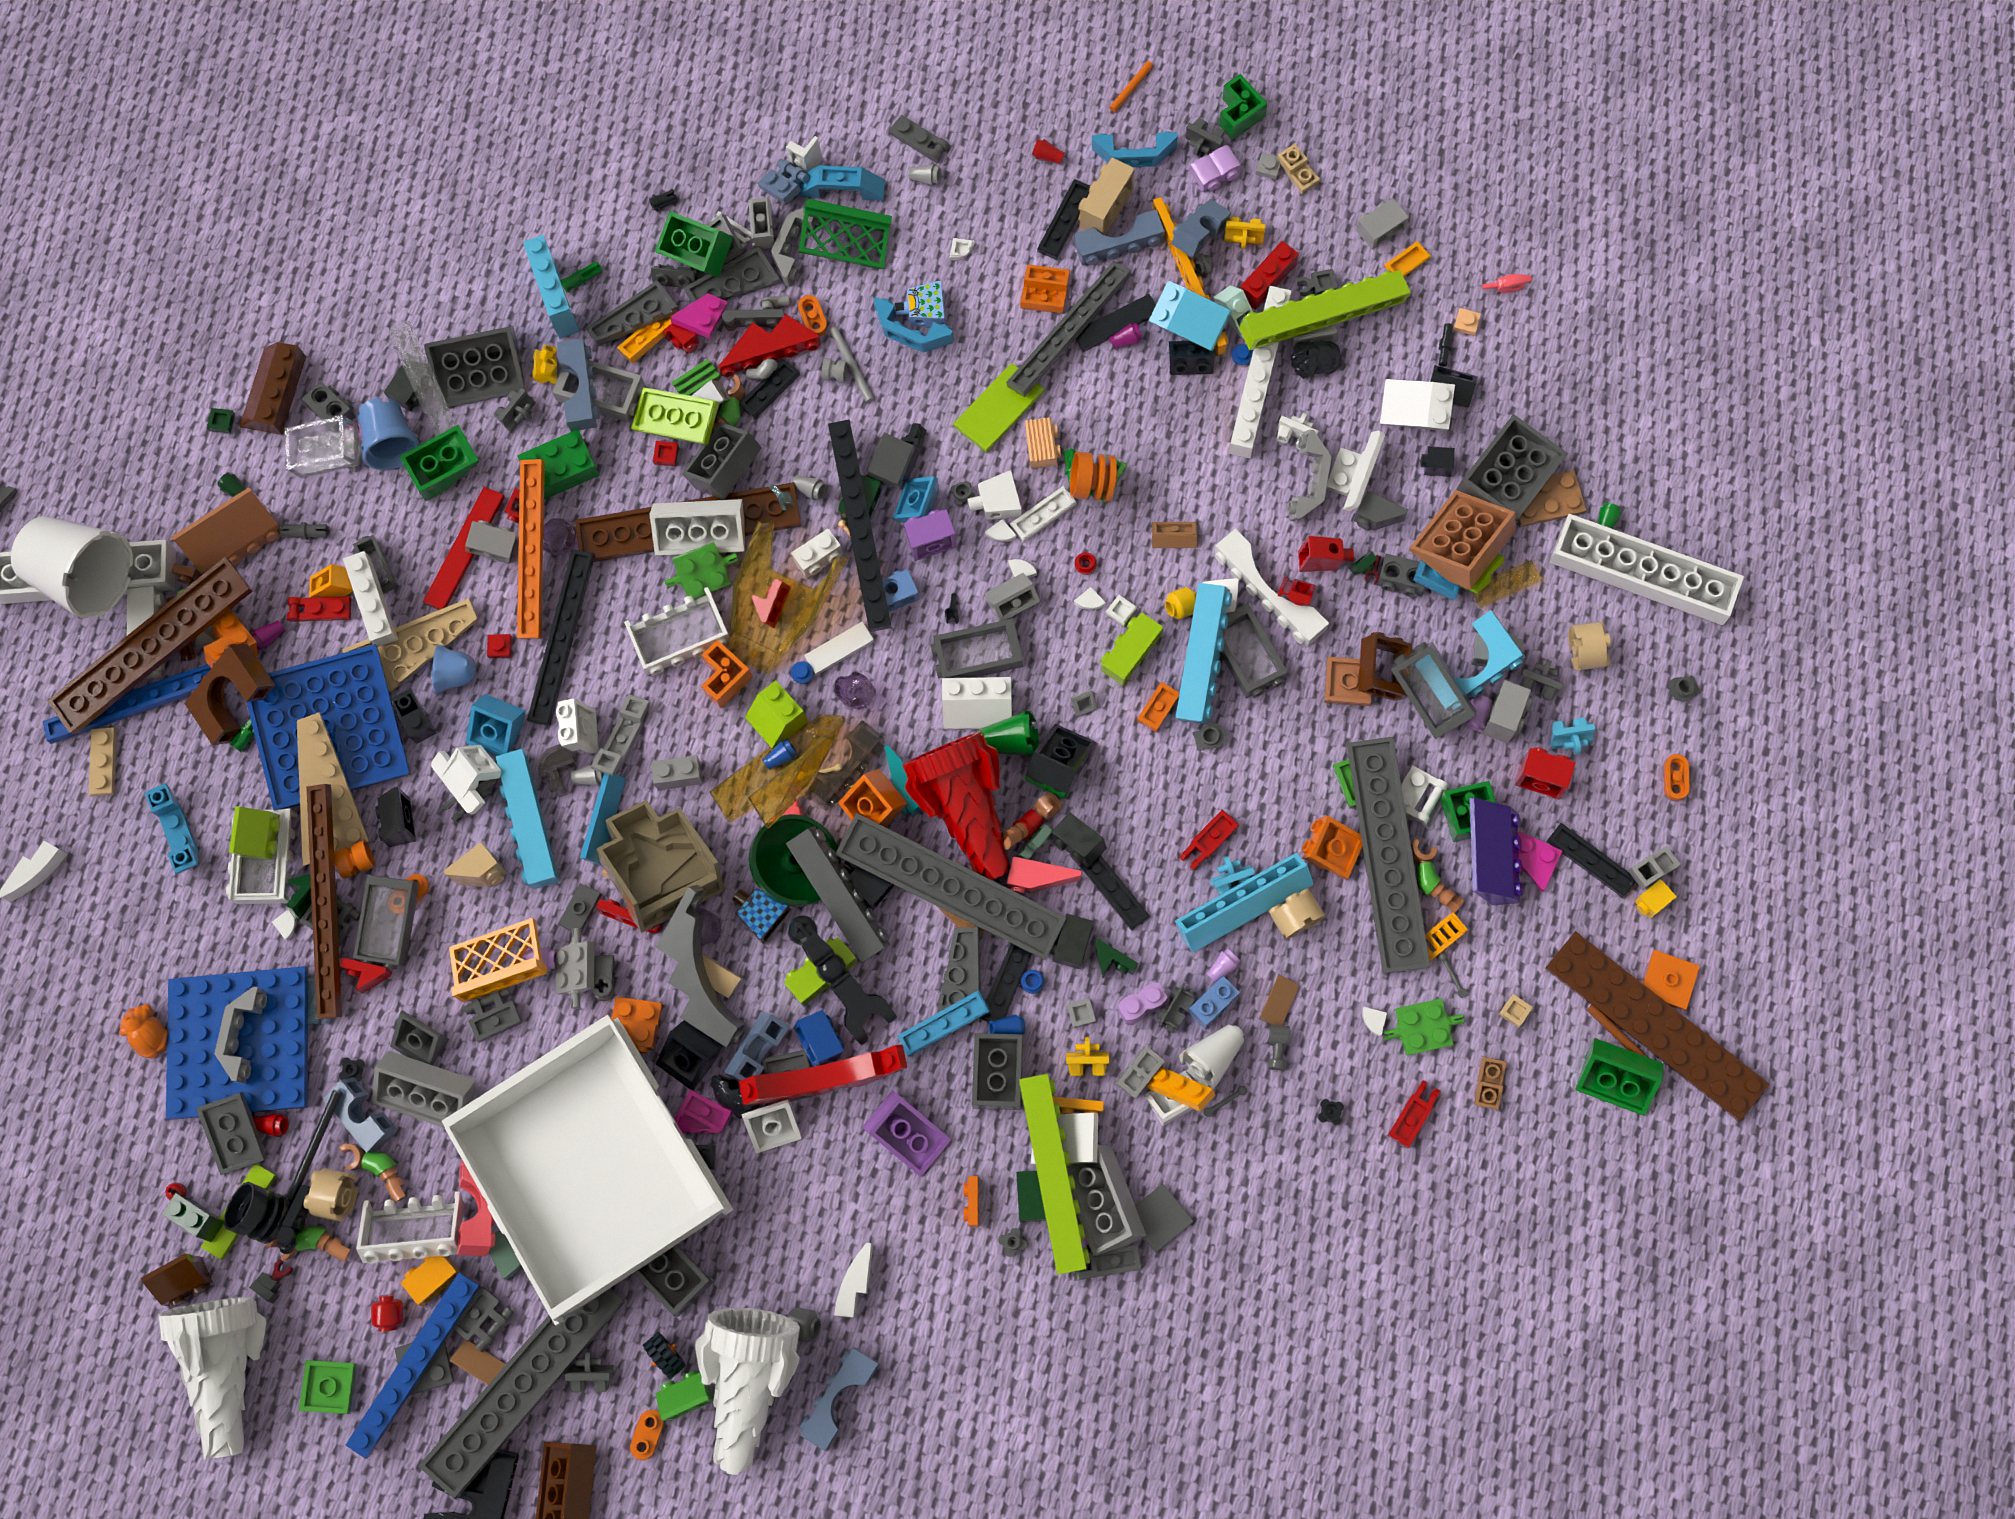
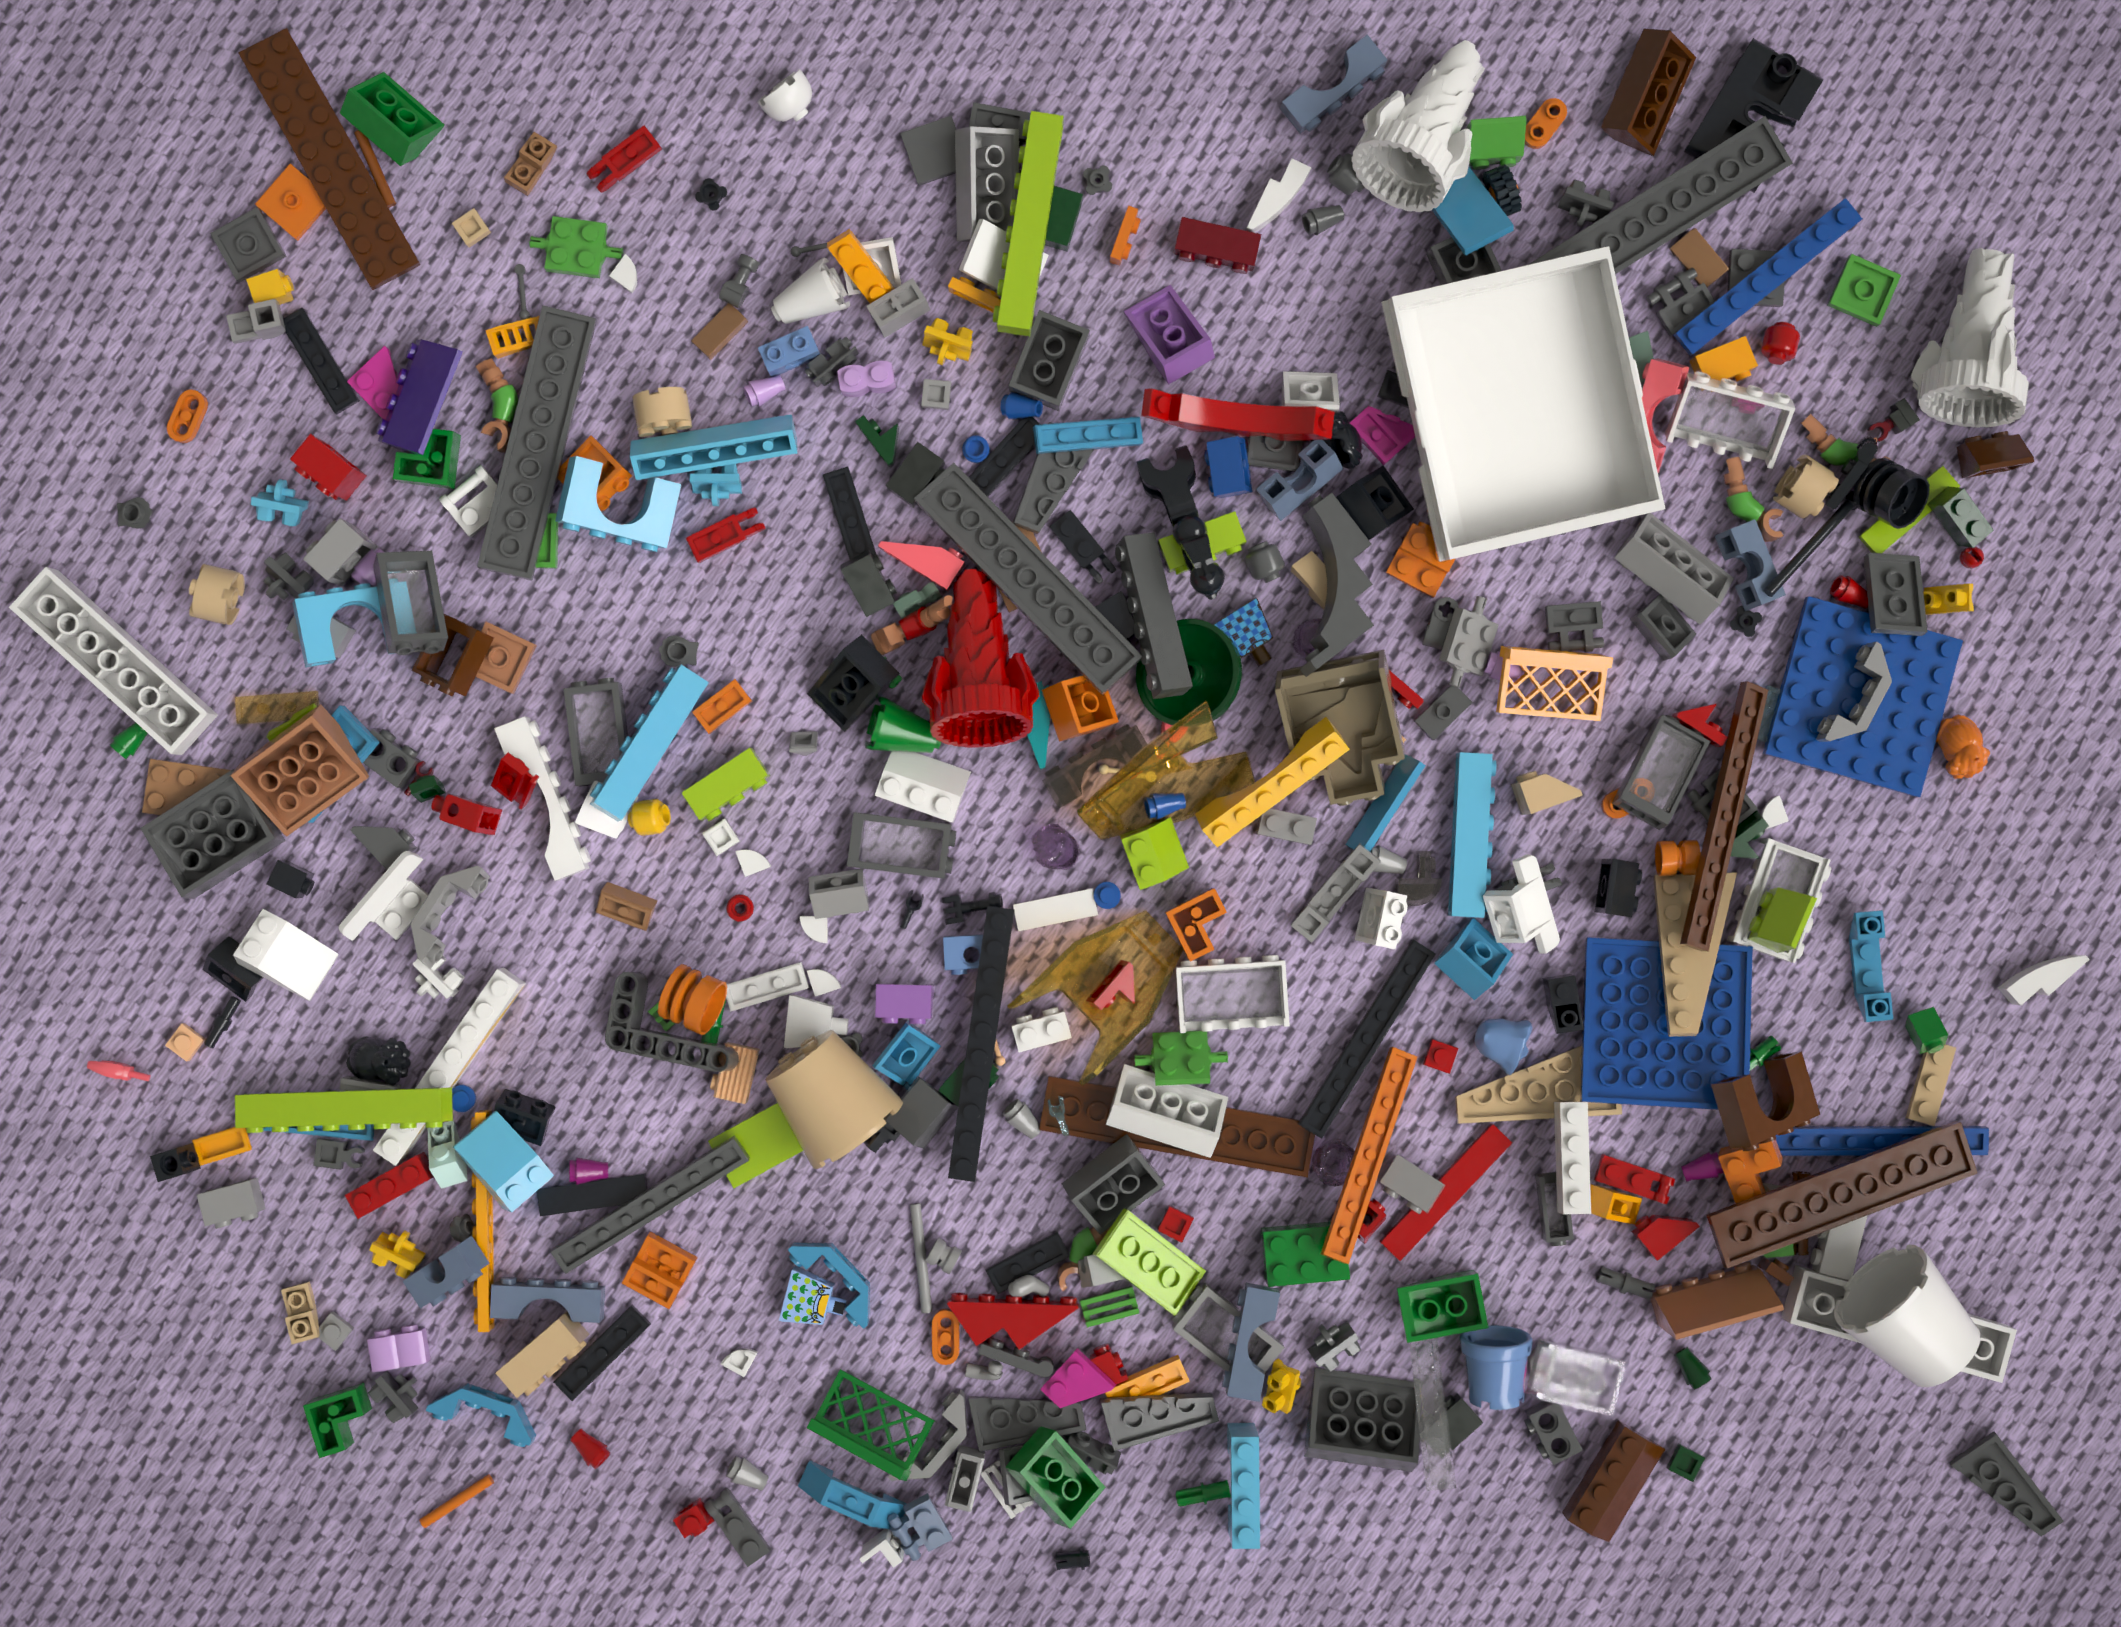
camera: 165 degrees left, 15 degrees up
(115, 795) = (1926, 1031): none -> green brick
(186, 1145) = (1948, 599): none -> yellow hips
(284, 576) = (1662, 1233): none -> red slope
(671, 829) = (1233, 812): none -> yellow arch
(679, 1318) = (1472, 214): none -> dark azure tile
(763, 973) = (1264, 561): none -> dark grey head
(811, 1278) = (1322, 218): none -> dark grey cone
(888, 635) = (967, 907): none -> black hinge
(892, 1221) = (1217, 245): none -> dark red brick
(919, 936) = (1081, 544): none -> black hinge
(951, 128) = (693, 1519): none -> red brick
(956, 438) = (830, 1097): none -> tan cone
(1109, 444) = (658, 1040): none -> dark grey beam
(1272, 819) = (580, 509): none -> arch
(1297, 1214) = (788, 98): none -> white cylinder
(1435, 235) = (175, 1162): none -> black brick
(1690, 930) = (248, 244): none -> dark grey plate

